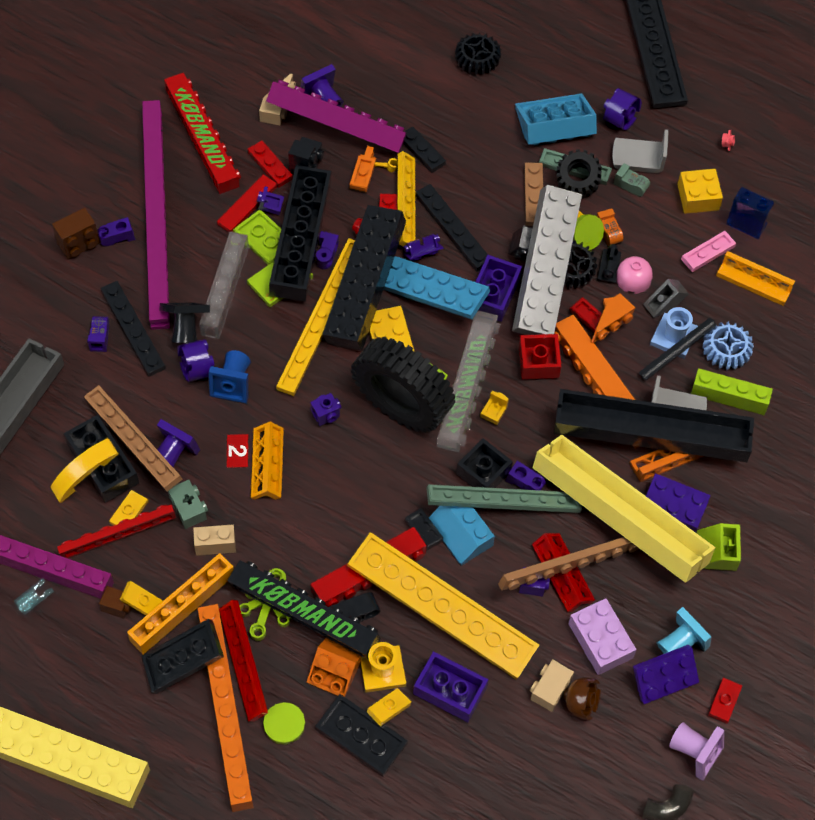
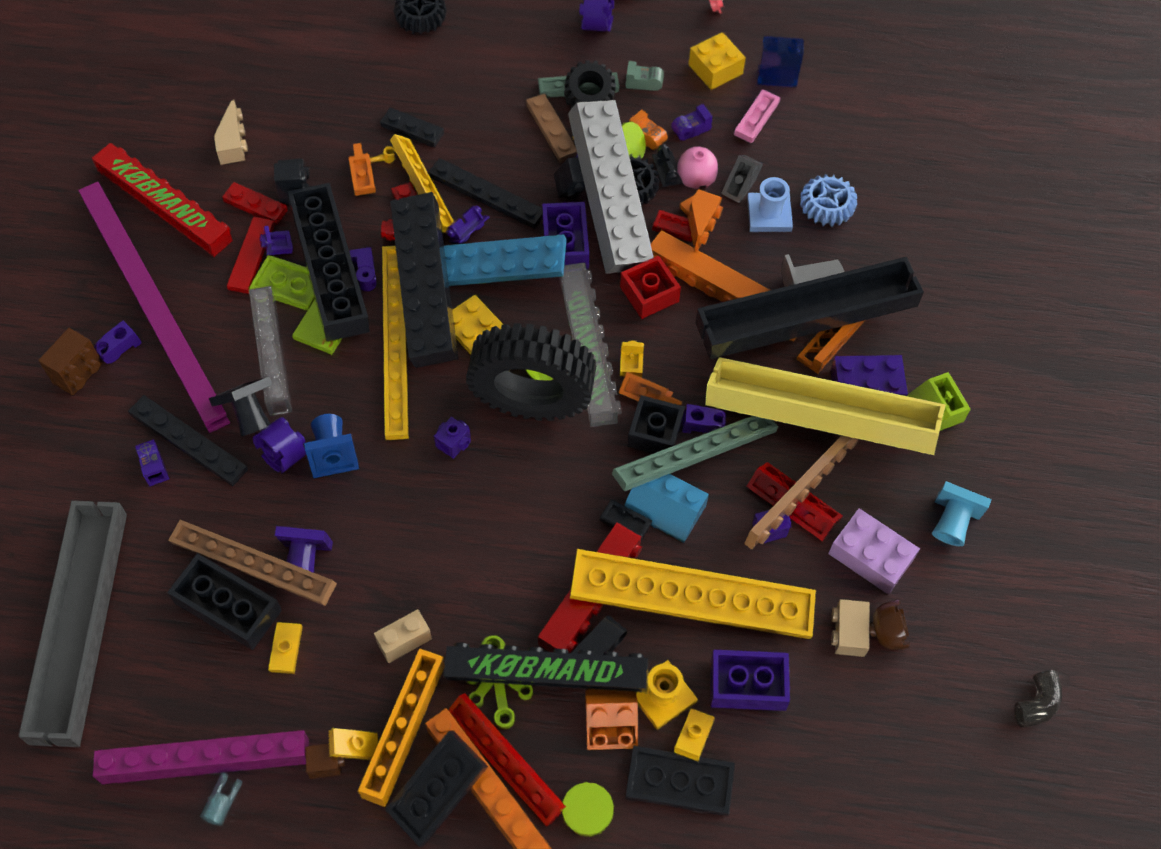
camera: 25 degrees left, 0 degrees up
(81, 467) = (208, 622): yellow slope -> none
(112, 533) = (276, 685): red plate -> none
(188, 514) = (357, 620): sand green brick -> none
(237, 450) = (375, 525): red sticker -> none
(271, 459) = (420, 518): light orange fence -> none
(322, 83) = (269, 100): dark purple plant -> none
(335, 116) = (305, 125): magenta brick -> none
(488, 431) = (634, 386): none -> orange hinge
(556, 119) = (535, 45): dark azure slope -> none
(641, 154) = (641, 47): light grey piece -> none
(650, 236) = (693, 123): none -> dark purple leg
(666, 674) = (961, 560): dark purple plate -> none
(677, 349) = (783, 223): black axle -> none
(695, 745) = (1037, 622): lavender plant -> none
(725, 700) = (1030, 561): red plate -> none
(732, 391) = (859, 243): lime brick -> none
(755, 280) = (817, 127): light orange fence -> none

